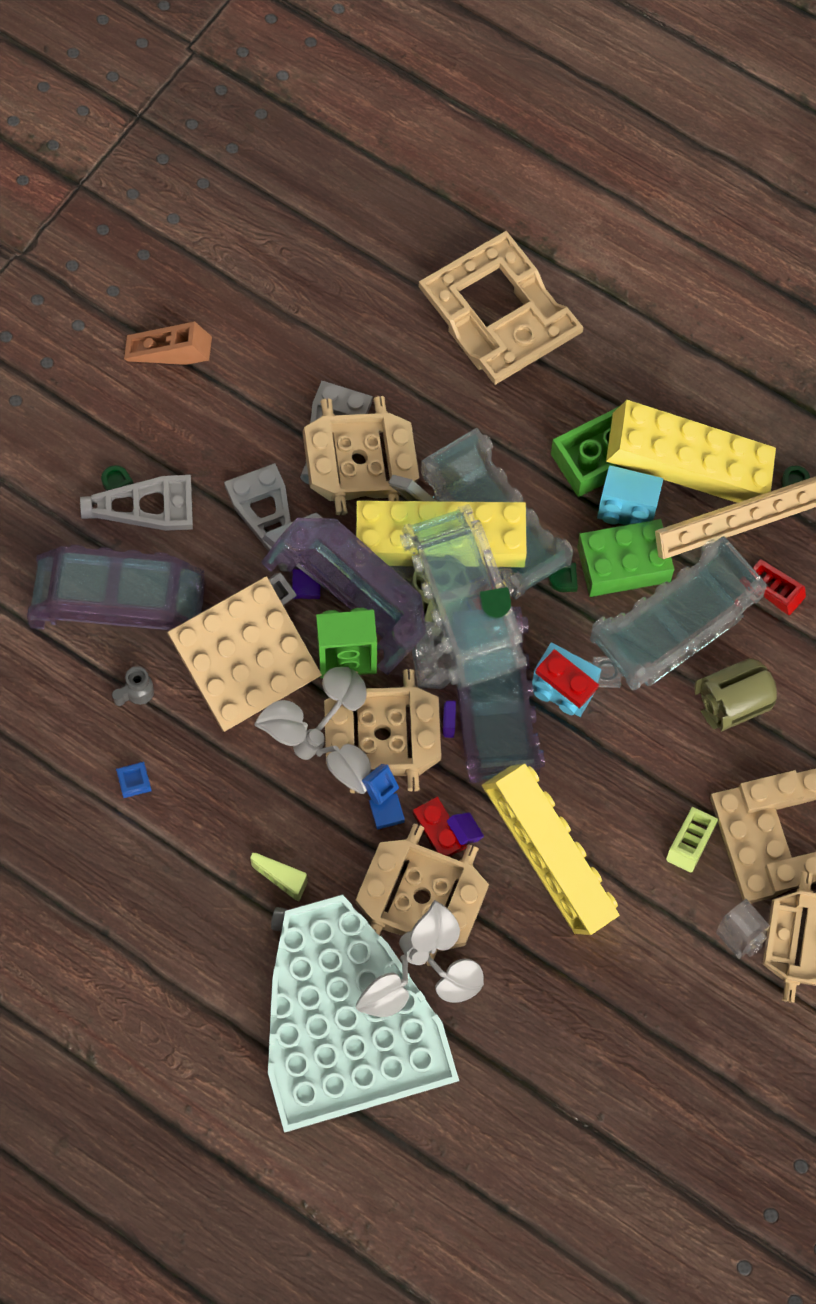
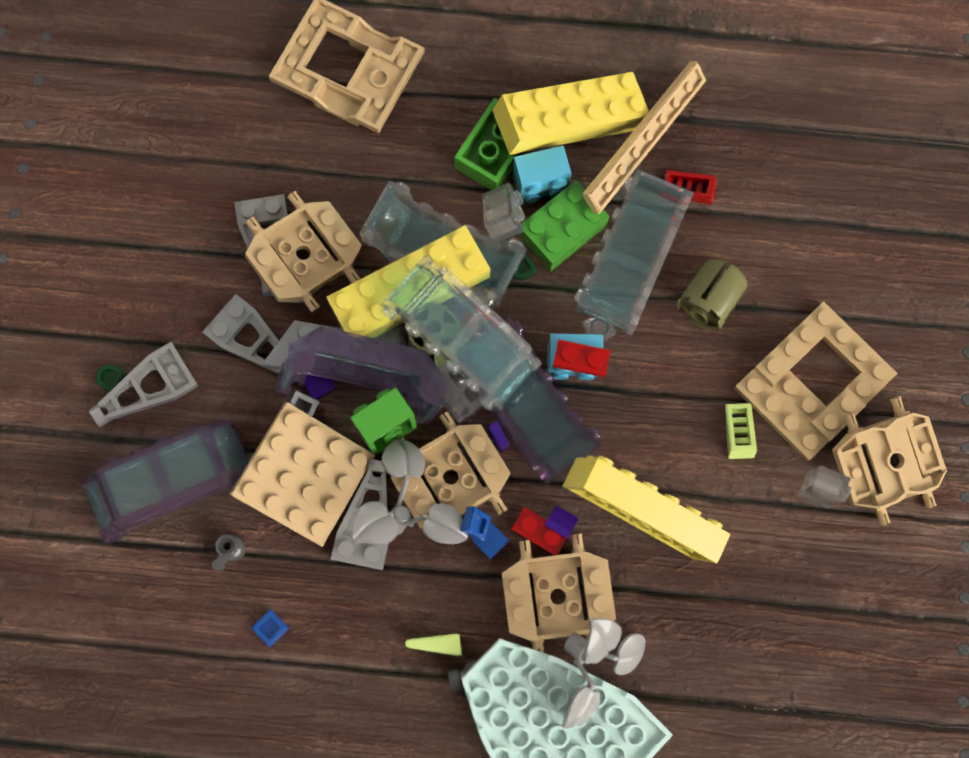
camera: 30 degrees left, 10 degrees up
(170, 345) = (89, 237): nougat slope -> none
(260, 757) = (362, 553): none -> light grey plate
(409, 489) = (365, 262): light grey tile -> none
(495, 602) = (496, 330): dark green tile -> none
(571, 513) = (503, 212): none -> clear brick
(794, 475) = (655, 89): dark green tile -> none

